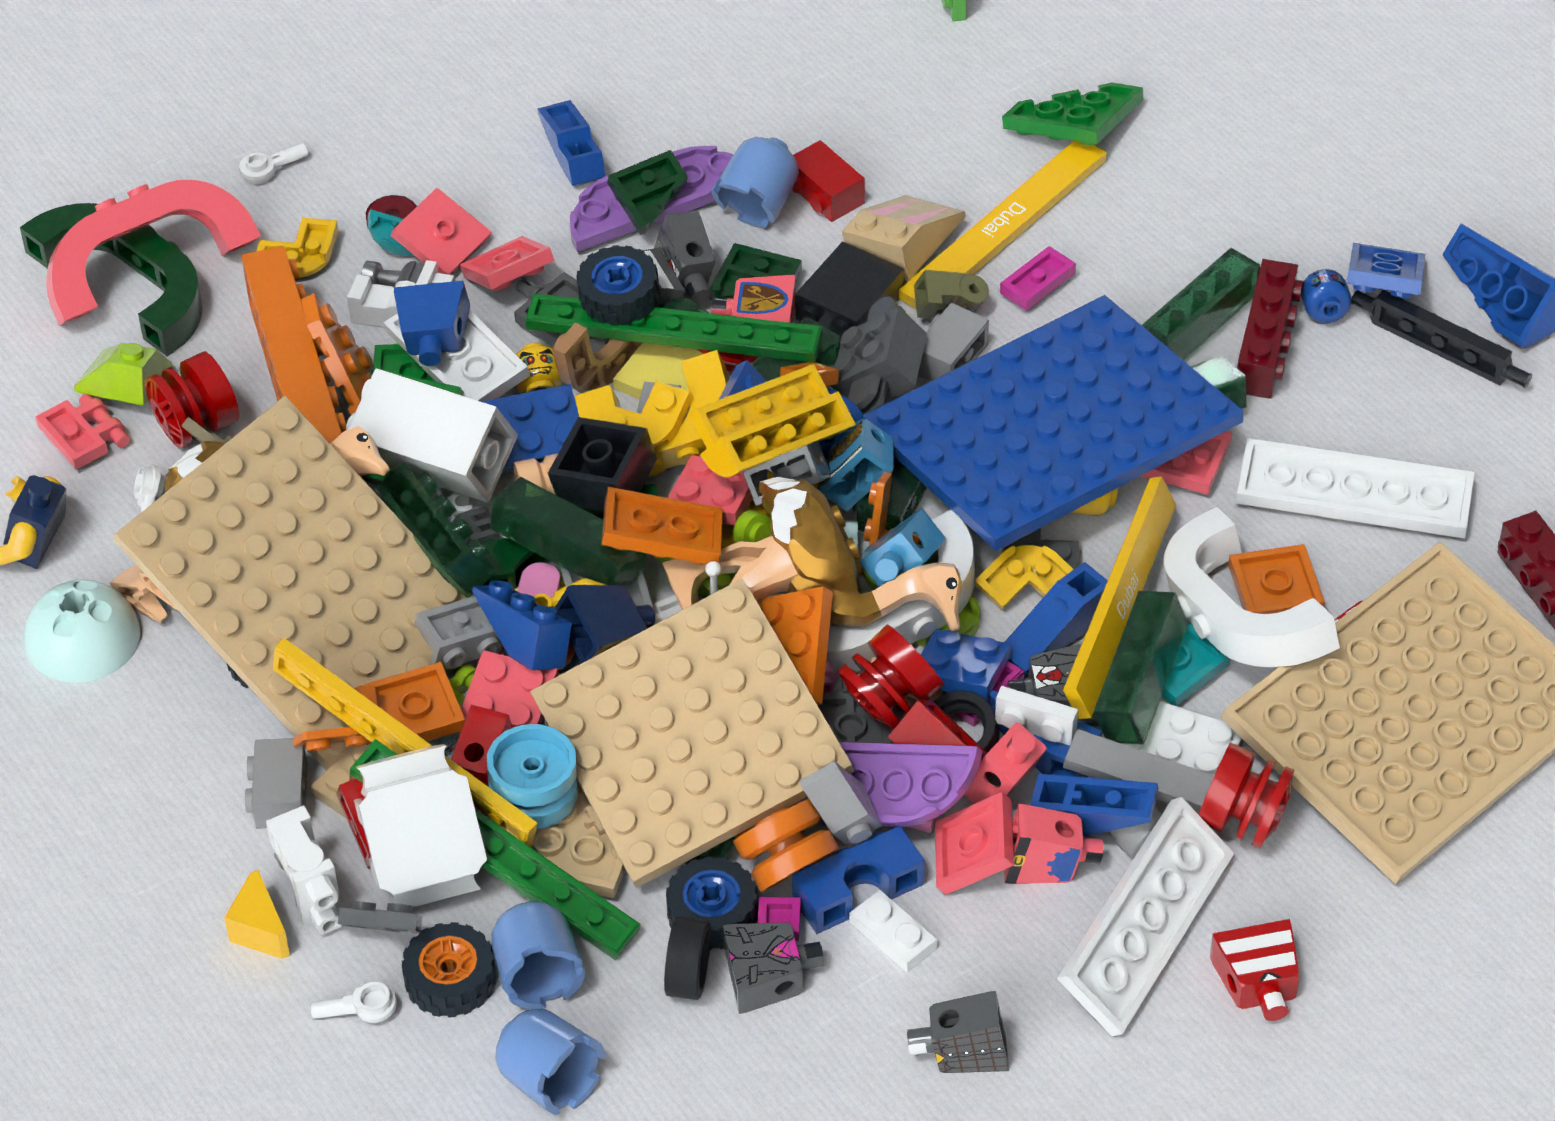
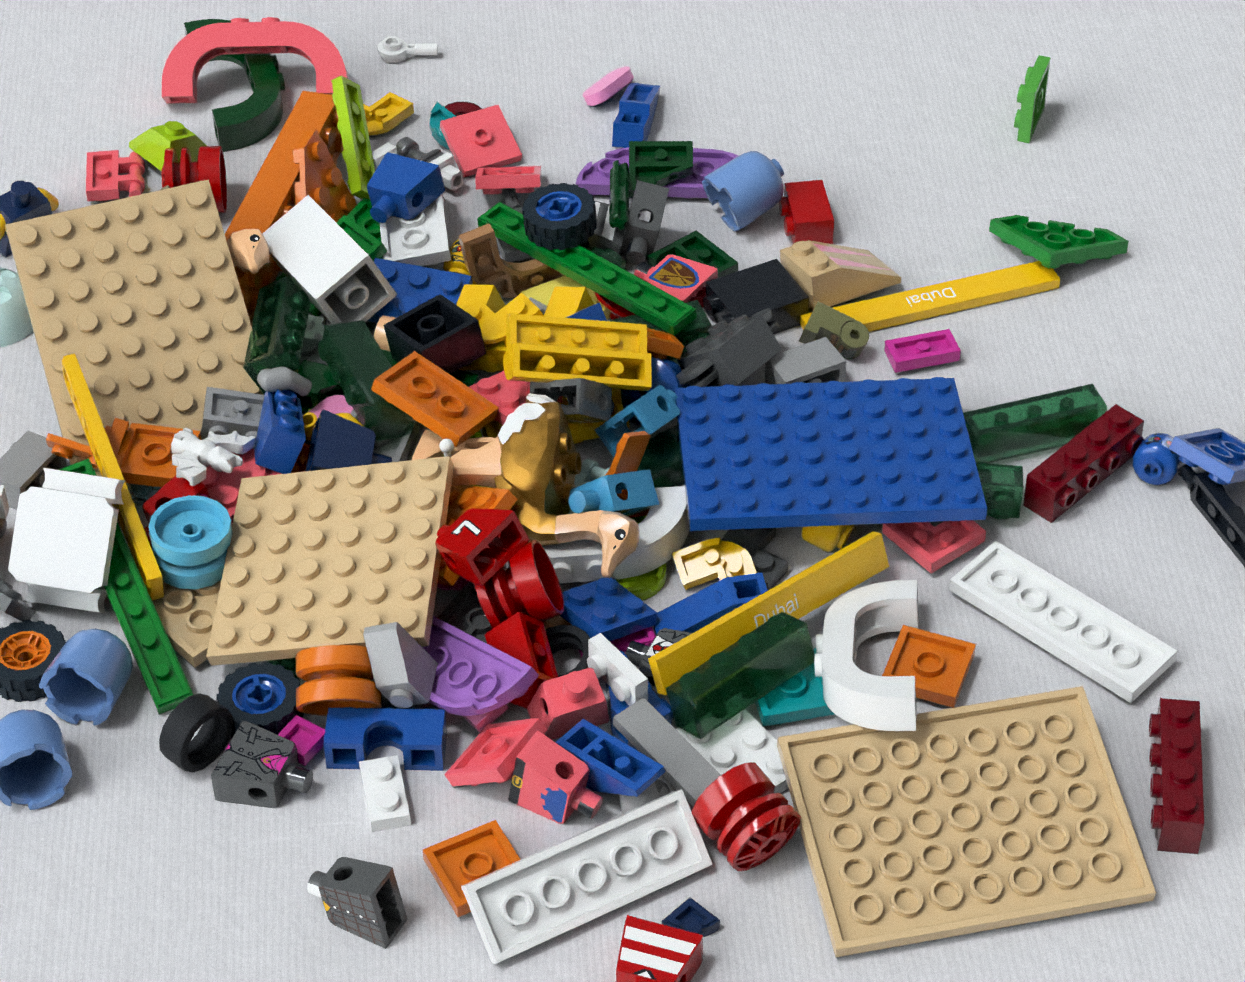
camera: 30 degrees right, 5 degrees down
(322, 275) = (354, 135): none -> lime plate
(477, 678) = (194, 455): none -> white animal
(489, 573) = (283, 379): none -> light grey arm
(518, 121) = (608, 86): none -> bright pink tile
(644, 237) = (619, 195): none -> dark green axle
(843, 650) = (480, 542): none -> red torso
(1031, 957) = (467, 859): none -> orange plate
(1254, 910) = (693, 918): none -> dark blue tile

